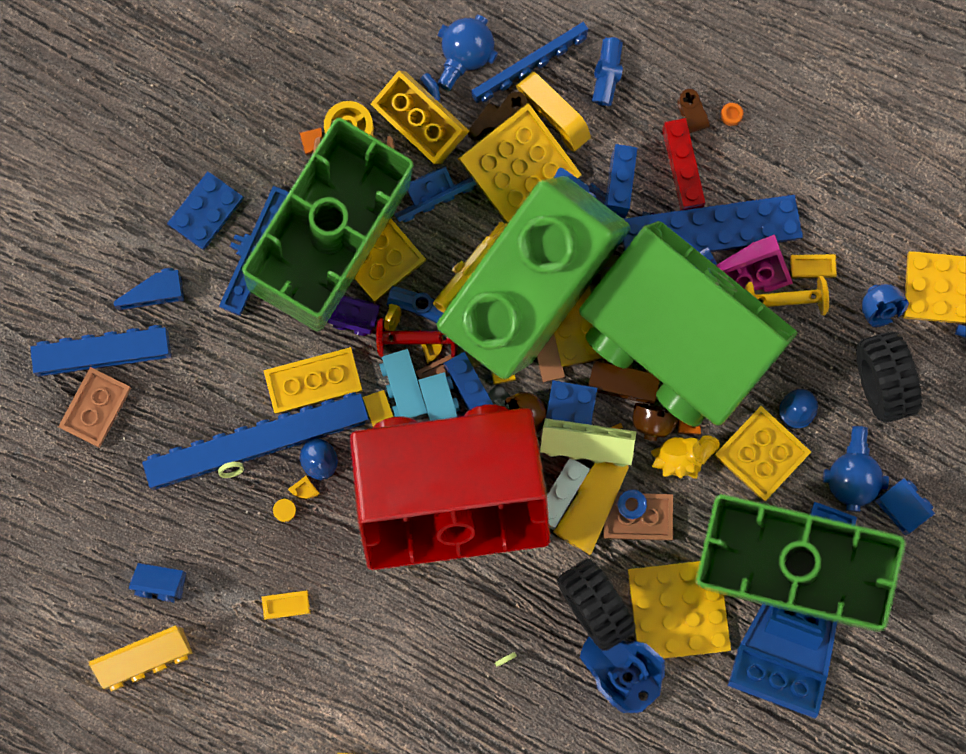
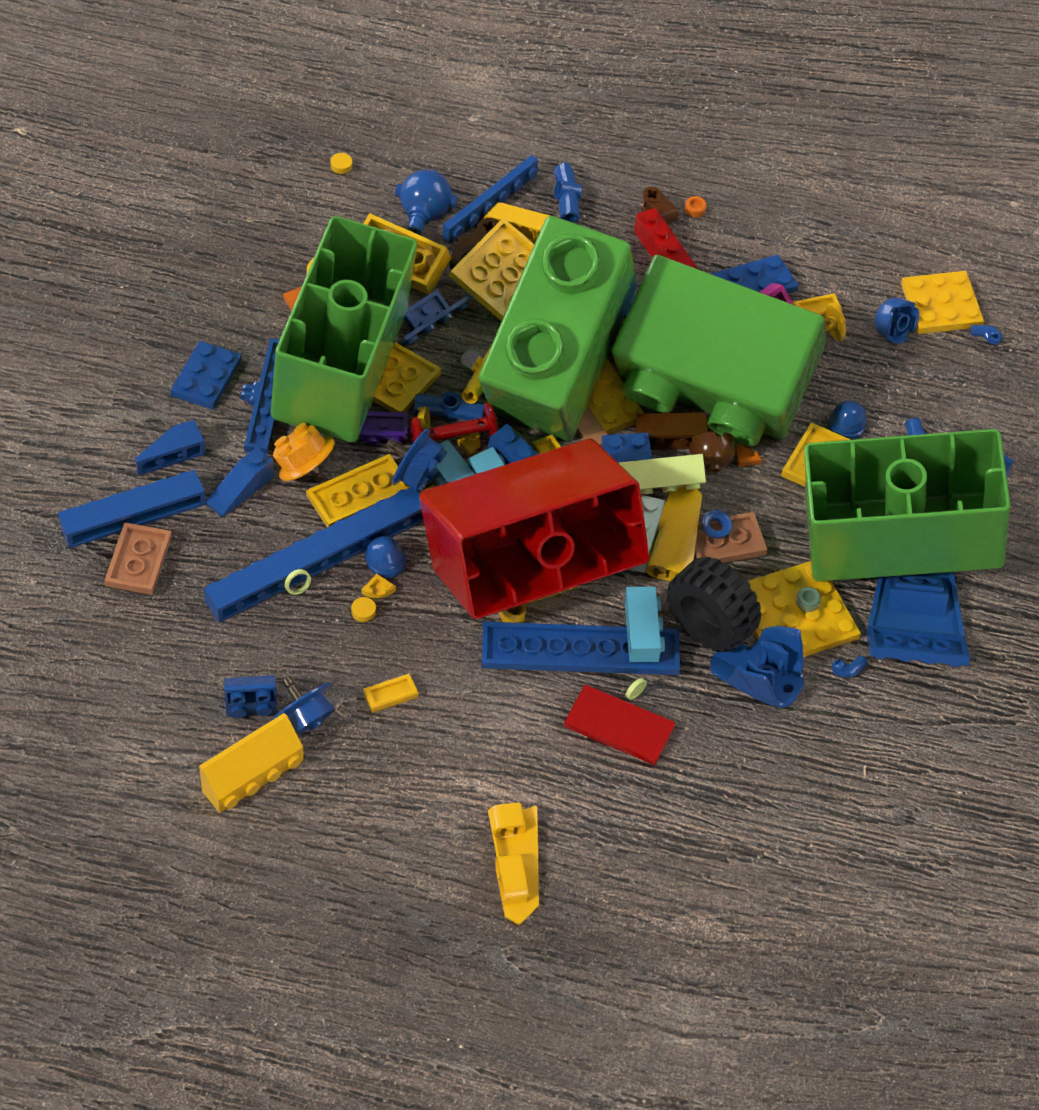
camera: 20 degrees left, 25 degrees down
(200, 615) = (307, 709): none -> blue piece
(206, 346) = (241, 482): none -> blue slope
(267, 335) = (302, 453): none -> light orange piece
(368, 378) = (418, 461): none -> blue piece
(458, 252) = (468, 359): none -> sand green tile
(470, 604) = (571, 649): none -> blue plate
(481, 690) = (619, 724): none -> red tile
(529, 599) = (643, 624): none -> medium azure brick
(684, 455) = (753, 474): yellow head -> none
(692, 606) = (808, 599): none -> sand green tile
(708, 685) = (849, 670): none -> blue arm
(889, 376) = (925, 362): black tyre -> none

